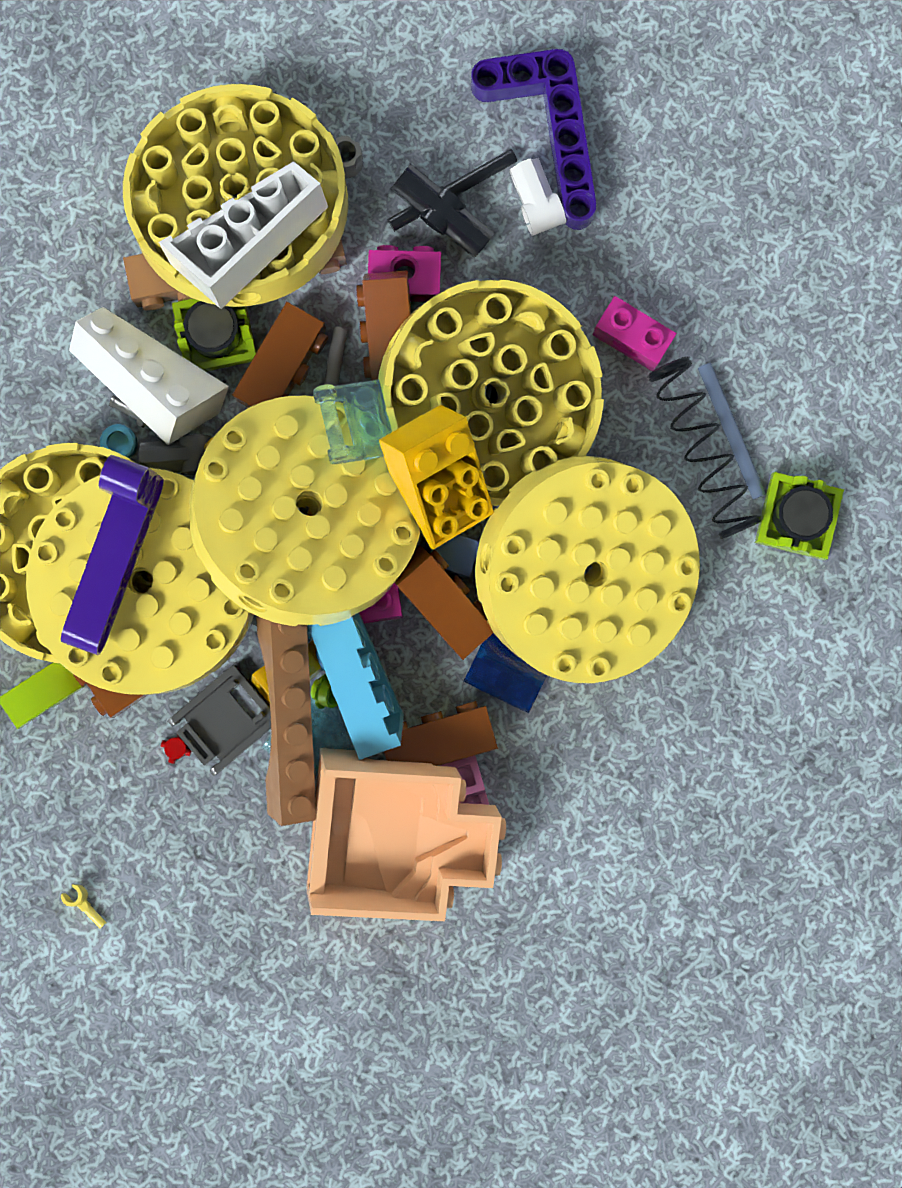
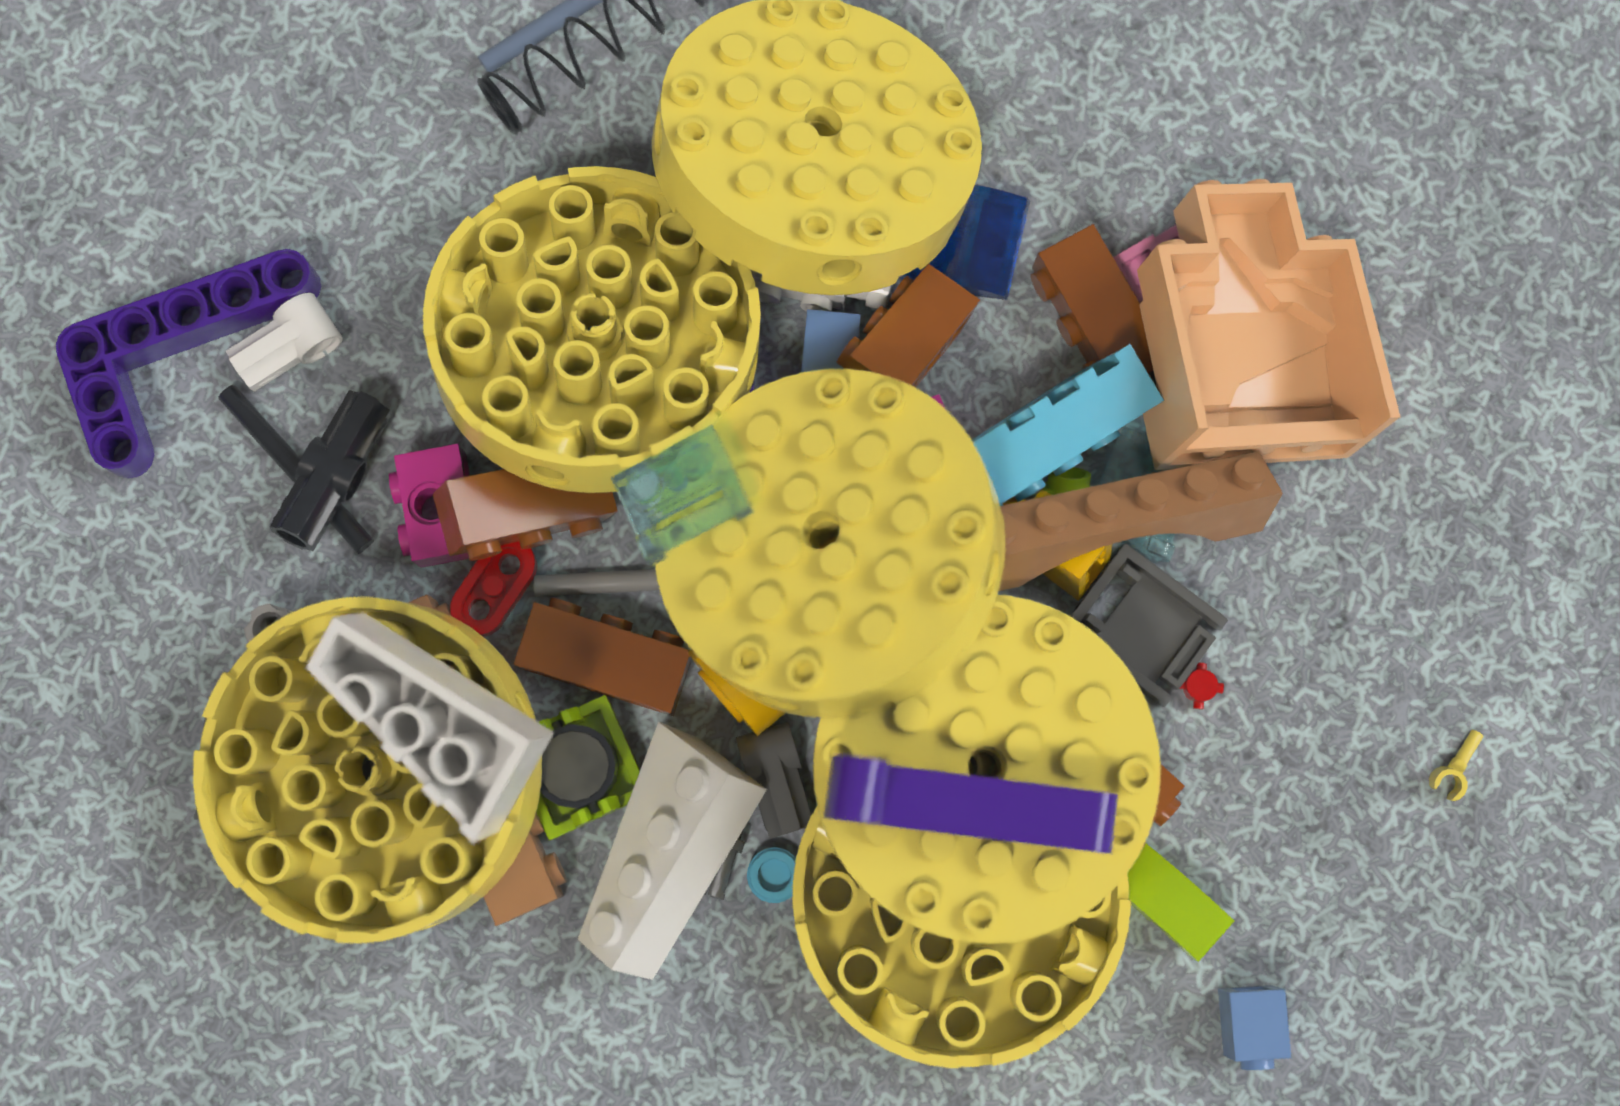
camera: 105 degrees left, 5 degrees down
(343, 303) = (490, 584): none -> red plate
(438, 474) = (731, 357): yellow slope -> none
(633, 333) = (458, 162): dark pink brick -> none

